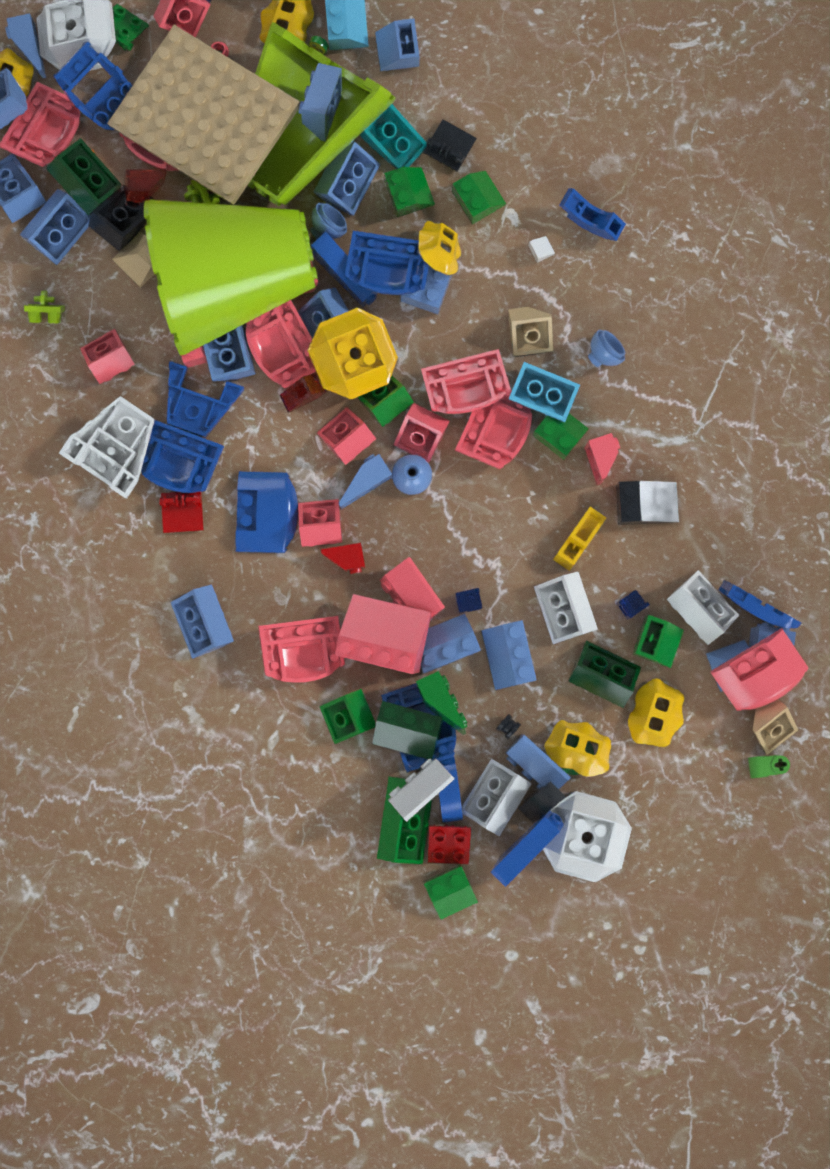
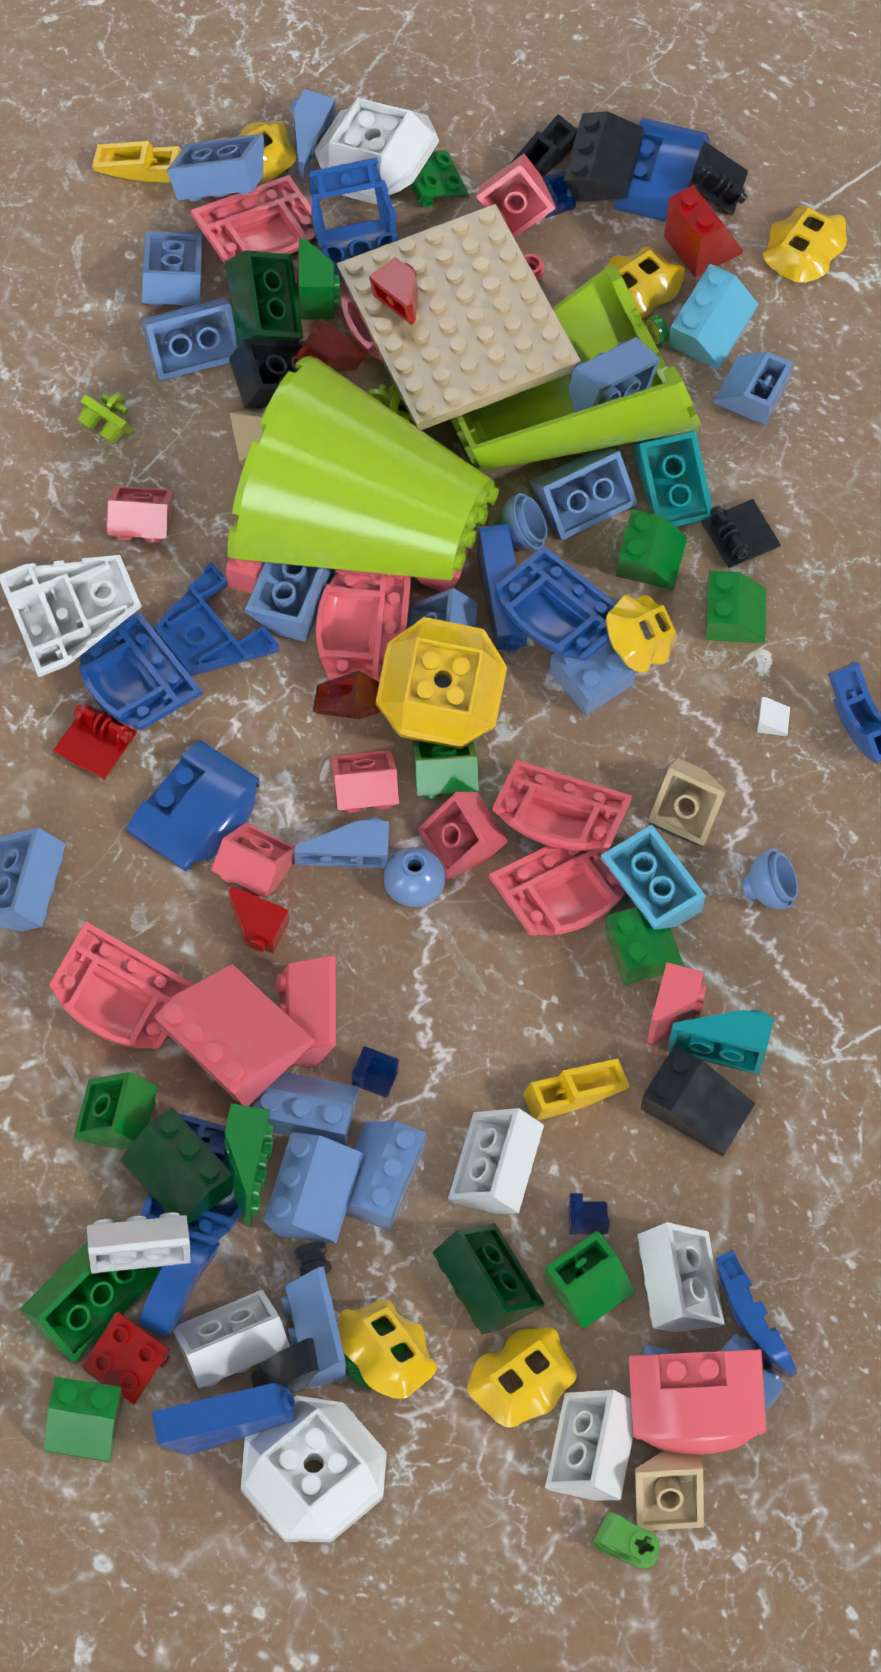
camera: 35 degrees right, 20 degrees down
(106, 144) = (317, 283): none -> green slope
(158, 121) = (397, 288): none -> slope
(483, 689) = (312, 1188): none -> medium blue slope
(652, 454) = (726, 1039): none -> teal slope
(717, 728) = (592, 1445): none -> white slope

